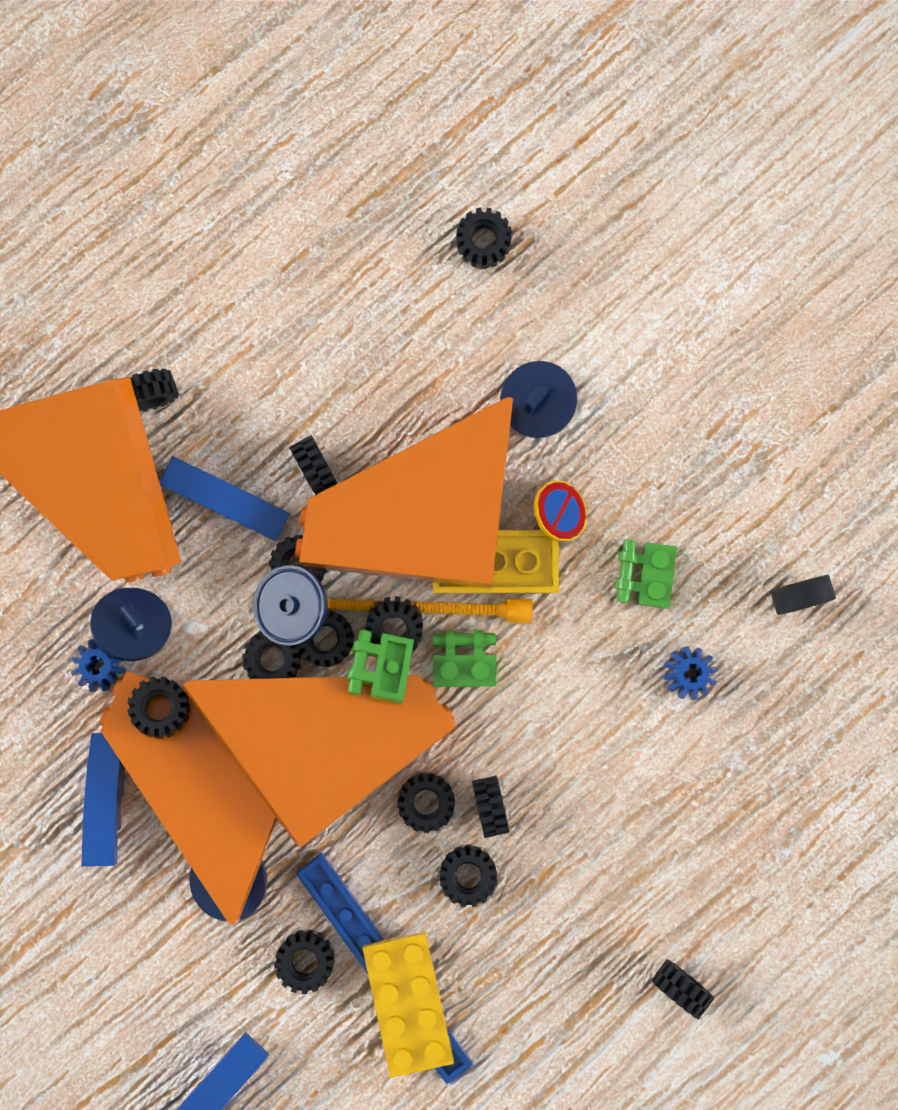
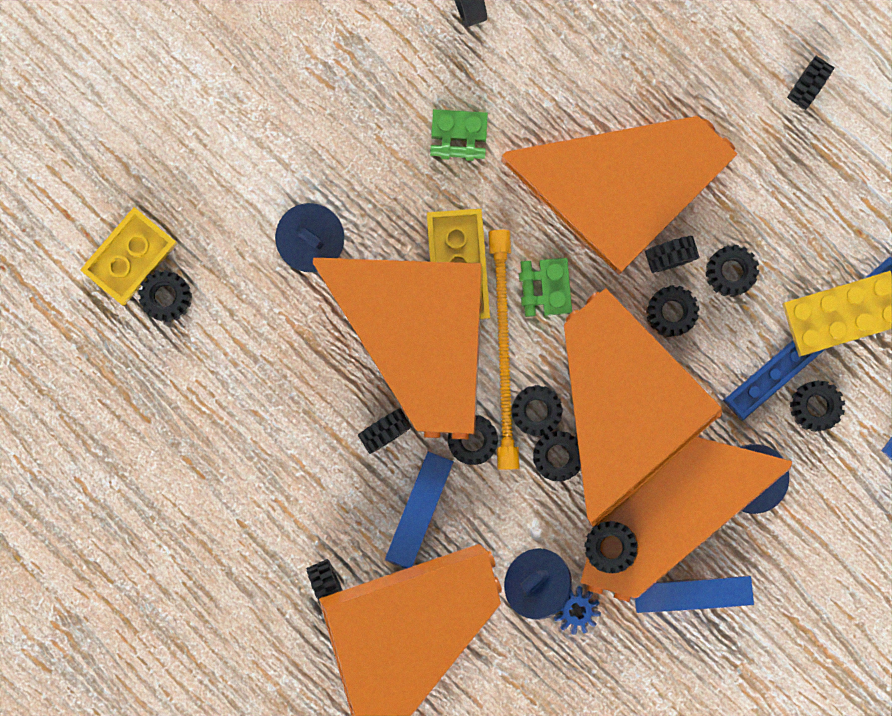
camera: 90 degrees left, 0 degrees up
(290, 605) = (512, 440): shield -> none
(390, 670) = (560, 346): bright green plate -> none
(399, 610) = (537, 349): black tyre -> none
(530, 201) = (128, 256): none -> yellow plate
(560, 511) = (409, 211): piece -> none
(577, 760) = (623, 183): none -> orange slope
(697, 681) = (536, 98): blue gear -> none

